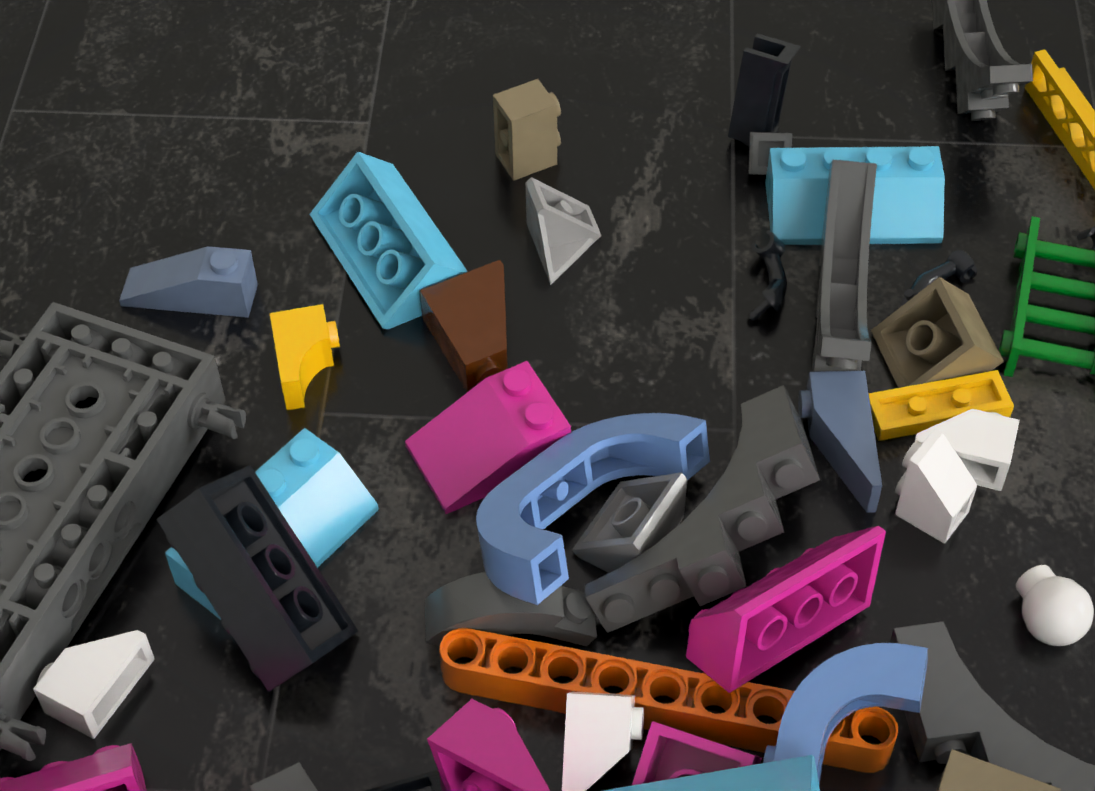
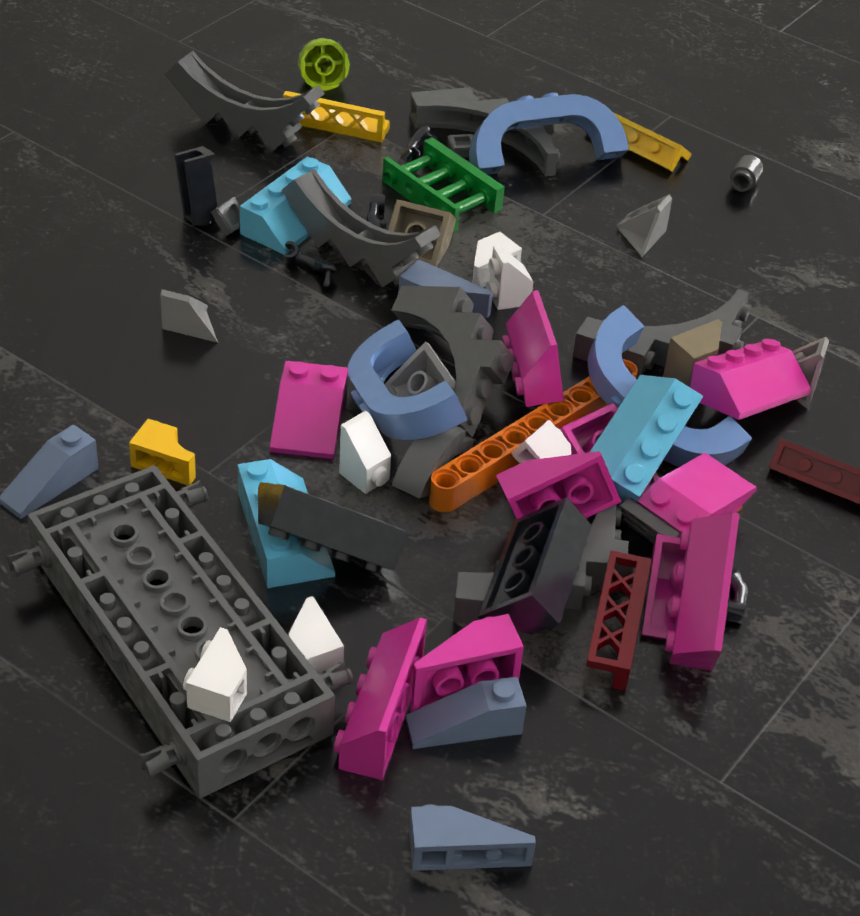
camera: 60 degrees left, 10 degrees down
(384, 239) = (118, 379): medium azure slope -> none
(439, 535) = (363, 454): none -> white slope
(470, 322) = (223, 378): reddish brown slope -> none
(526, 128) = (110, 280): dark tan brick -> none
(921, 406) = (458, 250): yellow plate -> none
(1054, 606) = (606, 287): white piece -> none

